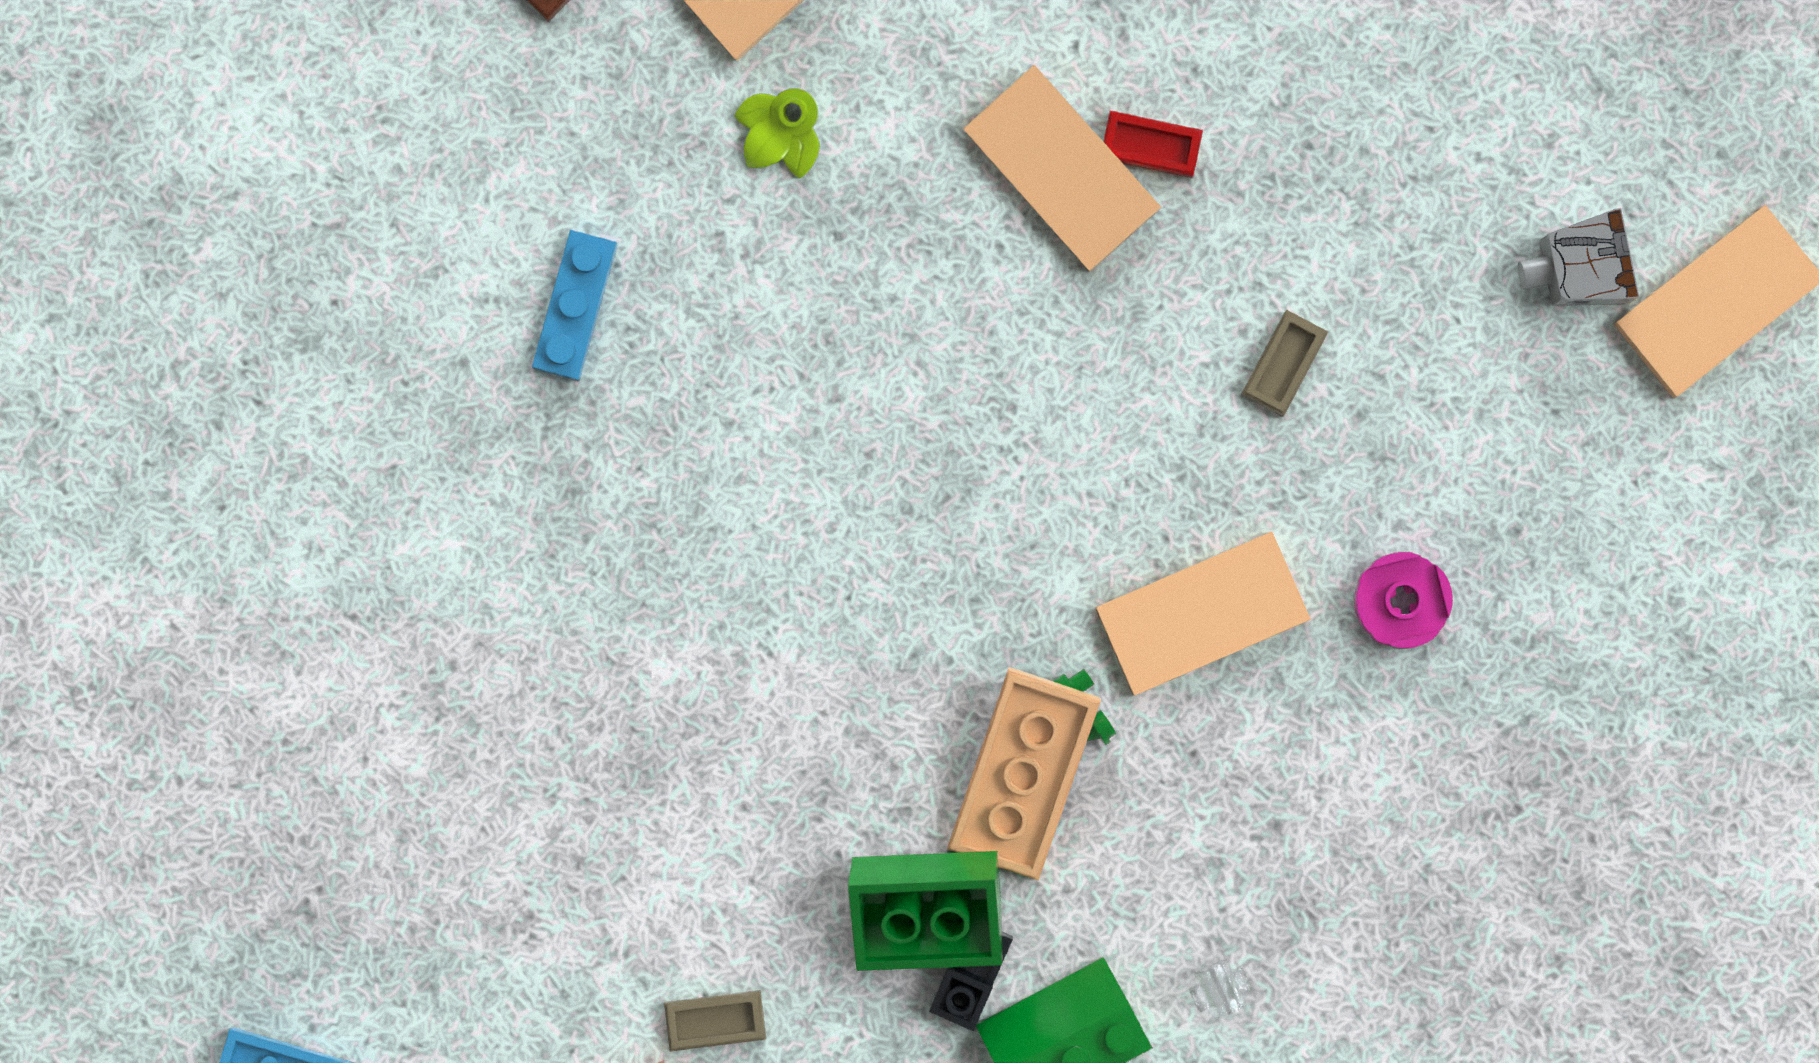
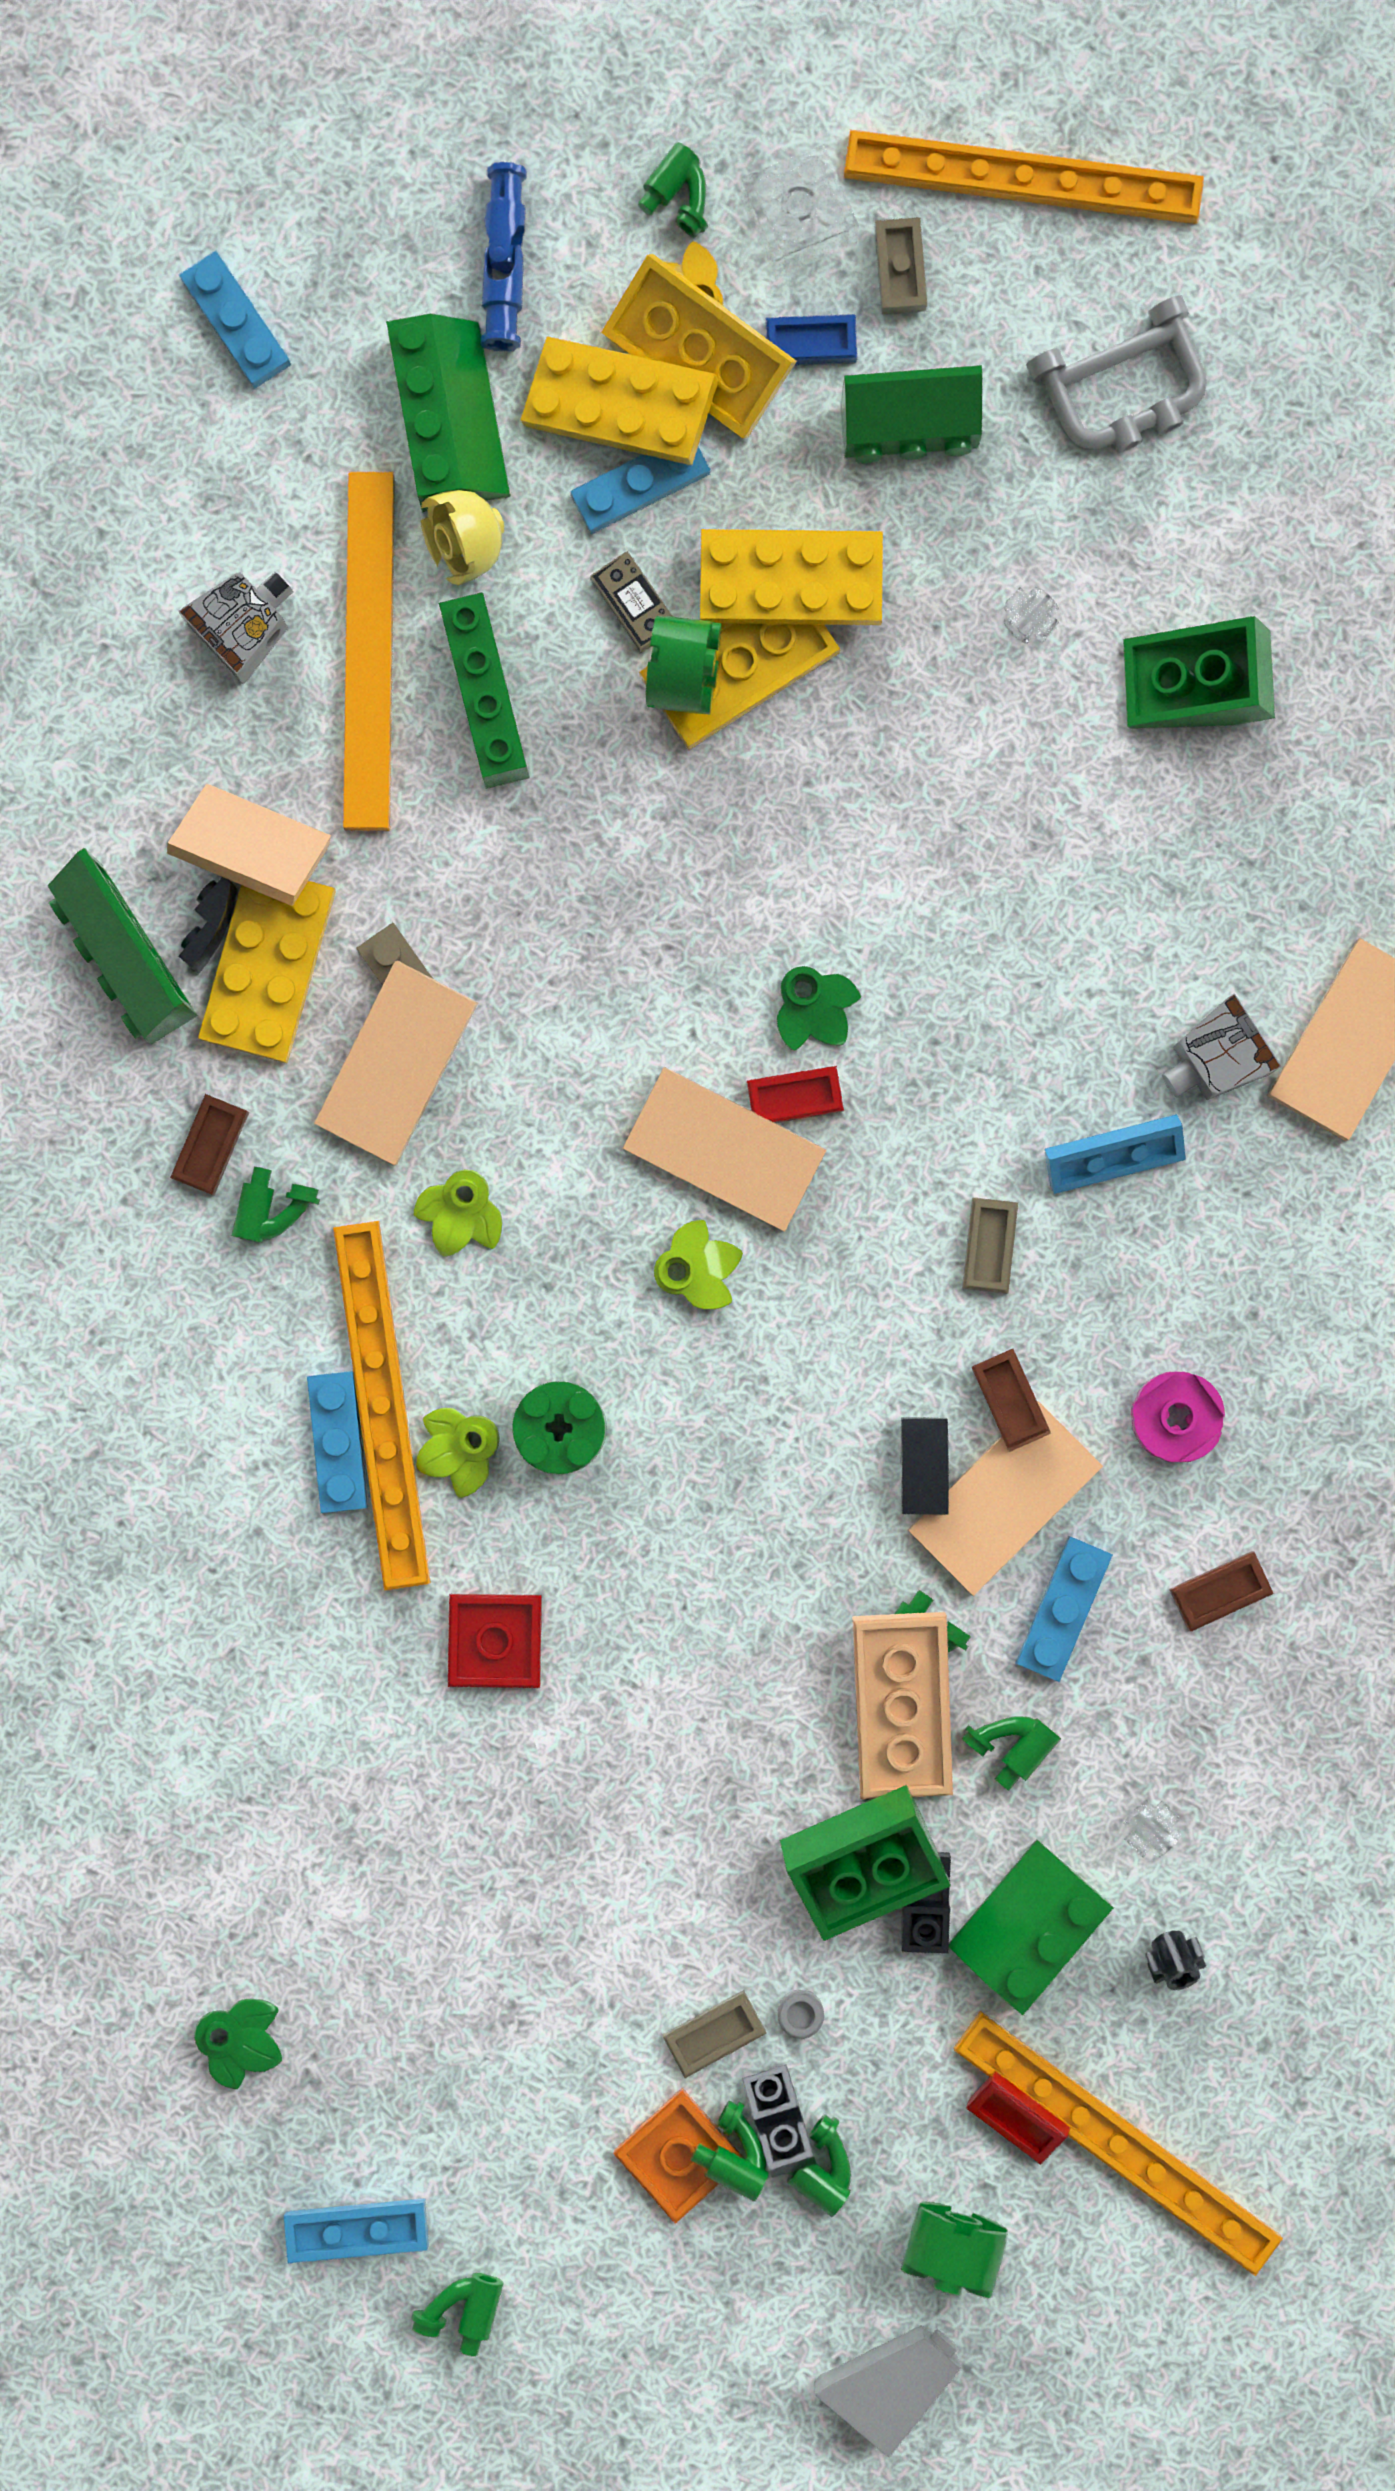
camera: 20 degrees left, 0 degrees up
(258, 850) = (245, 2044): none -> green plate
(584, 46) = (255, 1204): none -> green plant
(631, 287) = (381, 1405): none -> light orange tile
(651, 556) = (494, 1640): none -> red tile
(682, 359) = (453, 1454): none -> lime plate
(784, 348) = (542, 1407): none -> green brick
(806, 1034) = (800, 2014): none -> light grey tile
(998, 275) = (704, 1263): none -> lime plate
(1125, 869) = (1025, 1755): none -> green plant
(1136, 550) = (924, 1465): none -> black slope
(1204, 73) = (820, 1012): none -> green plate
(1218, 743) = (1064, 1608): none -> dark azure plate
(1246, 520) = (1011, 1400): none -> copper tile
(1378, 787) = (1221, 1591): none -> copper tile
(1442, 321) = (1115, 1154): none -> dark azure plate

